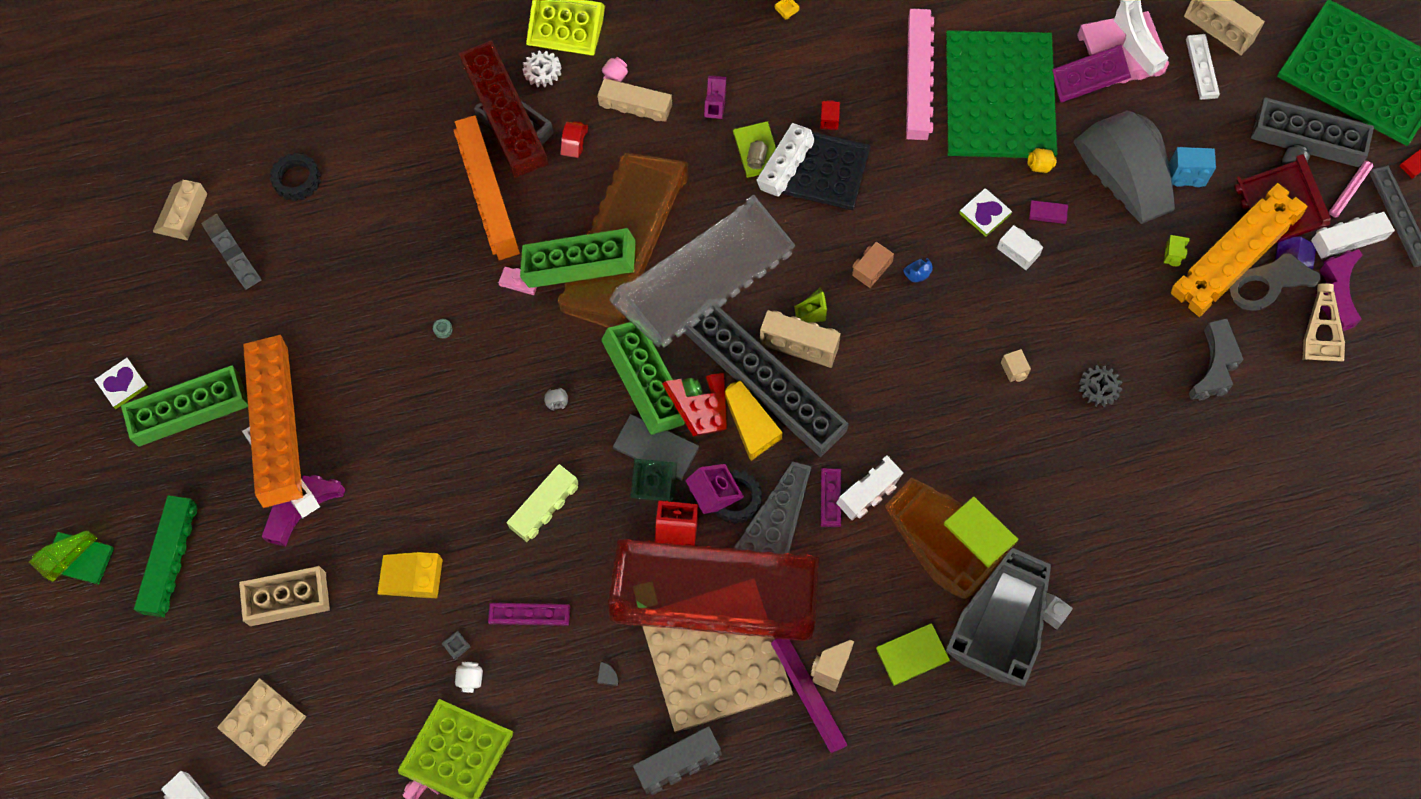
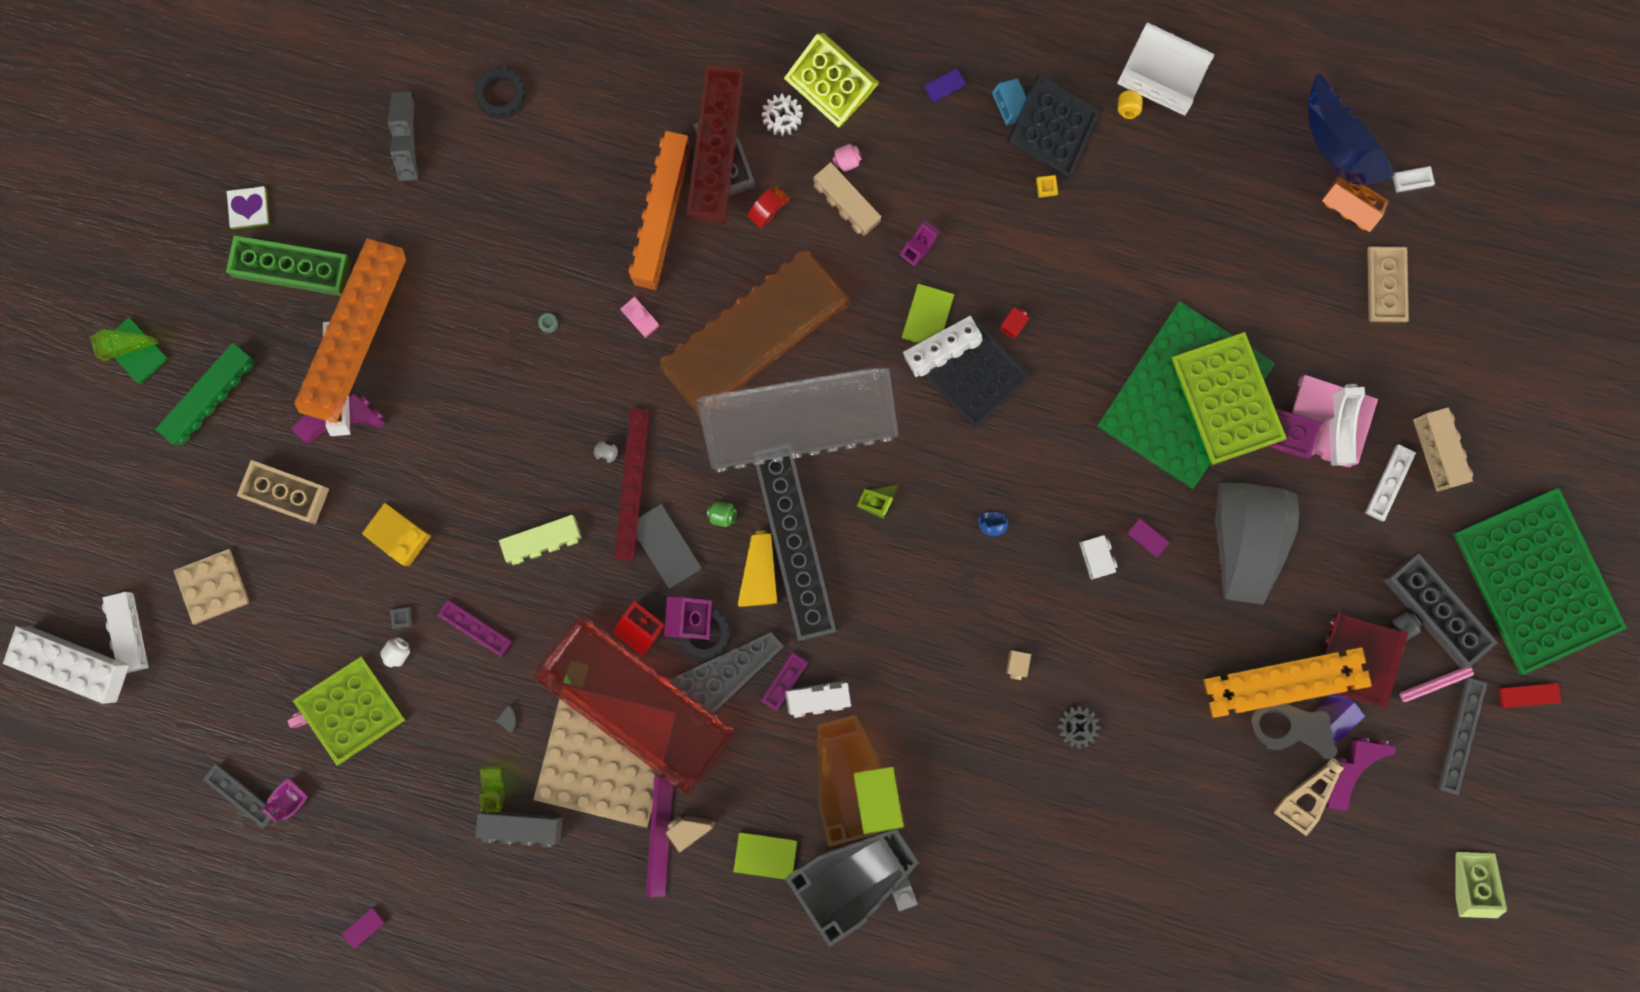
camera: 25 degrees right, 15 degrees up
(181, 210) = (382, 65): tan slope -> none
(578, 258) = (696, 336): bright green brick -> none
(596, 413) = (632, 484): none -> dark red plate
(630, 741) = (492, 789): none -> clear neon green brick
(642, 376) = (689, 484): bright green brick -> none
(654, 480) = (643, 578): clear green brick -> none
(703, 412) = (722, 543): red wing -> none
(757, 154) = (921, 324): dark tan brick -> none
(799, 338) = (845, 525): tan brick -> none
(873, 264) = (956, 493): nougat brick -> none
(918, 74) = (1124, 328): bright pink brick -> none
(985, 212) = (1091, 503): tile -> none
(1036, 71) = (1228, 398): none -> lime plate
(1041, 160) = (1175, 486): yellow head -> none
(1175, 250) = (1233, 645): lime brick -> none
(1192, 166) = (1303, 578): dark azure brick -> none
(1223, 358) = (1205, 765): dark grey arch -> none
(1352, 234) = (1402, 729): white brick -> none

